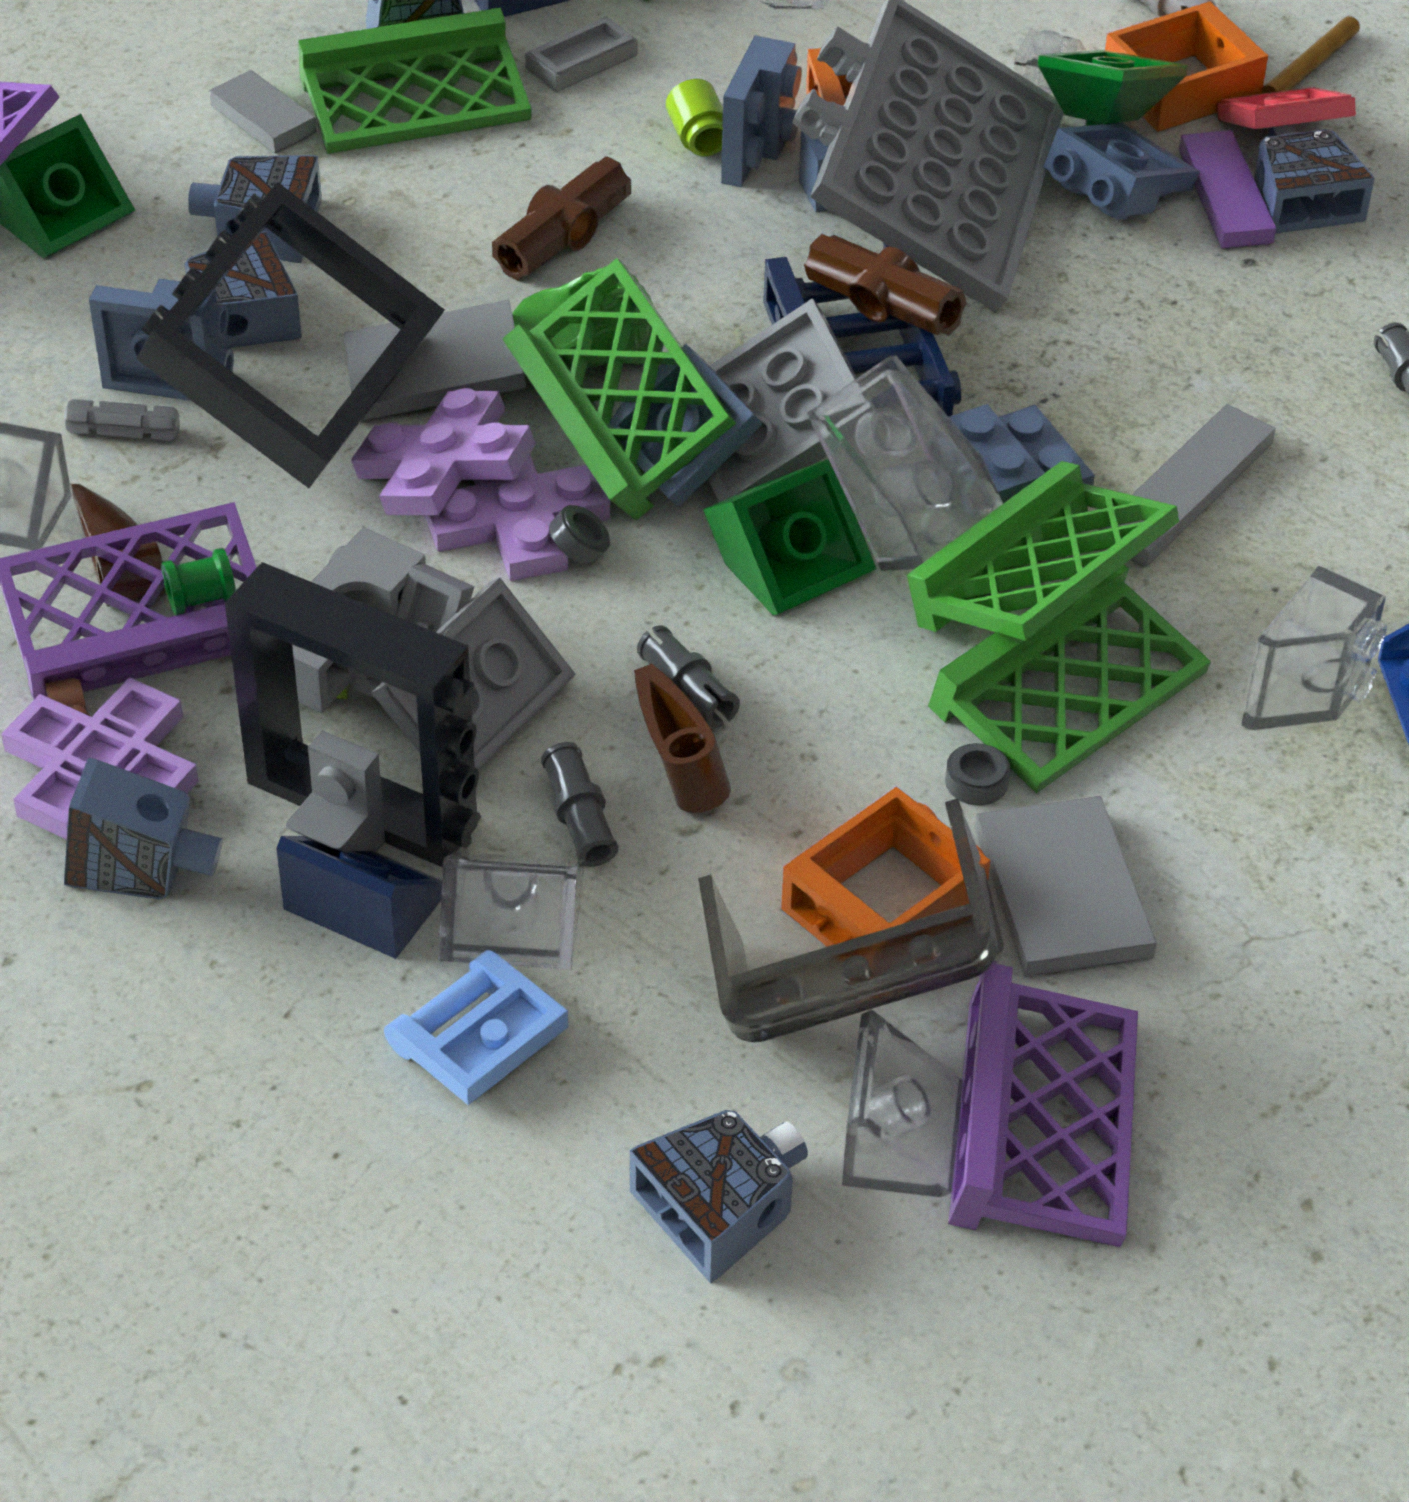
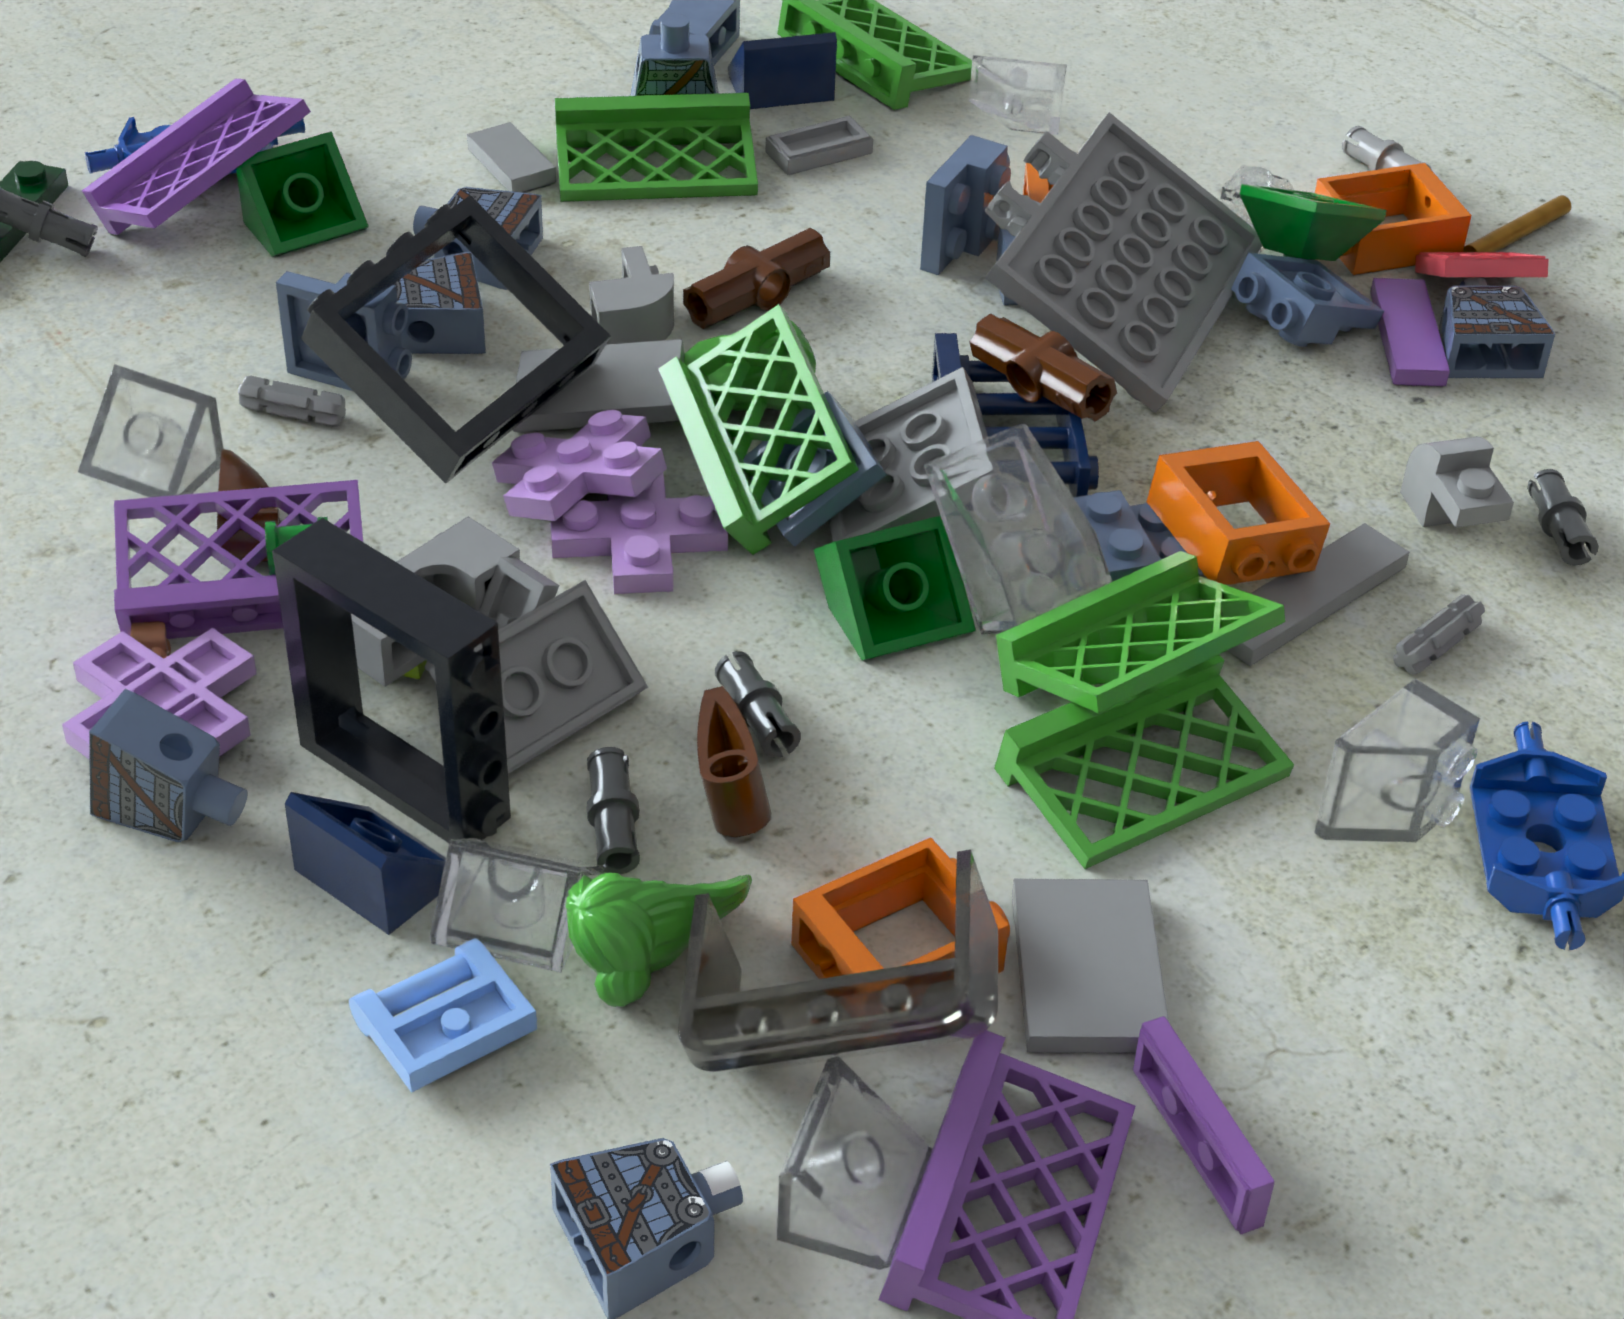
camera: 10 degrees right, 5 degrees down
(344, 799) = (375, 771): light grey slope -> none
(448, 262) = (636, 305): none -> light grey brick
(579, 534) = (689, 558): dark grey tile -> none
(642, 915) = (638, 927): none -> bright green hair
(696, 116) = (905, 206): lime brick -> none
(977, 774) = (1026, 841): dark grey tile -> none
(1054, 401) = (1195, 482): none -> orange window
(1204, 1019) = (1203, 1126): none -> medium lavender tile
(1307, 352) = (1455, 484): none -> light grey brick
(1319, 509) = (1439, 634): none -> light grey axle

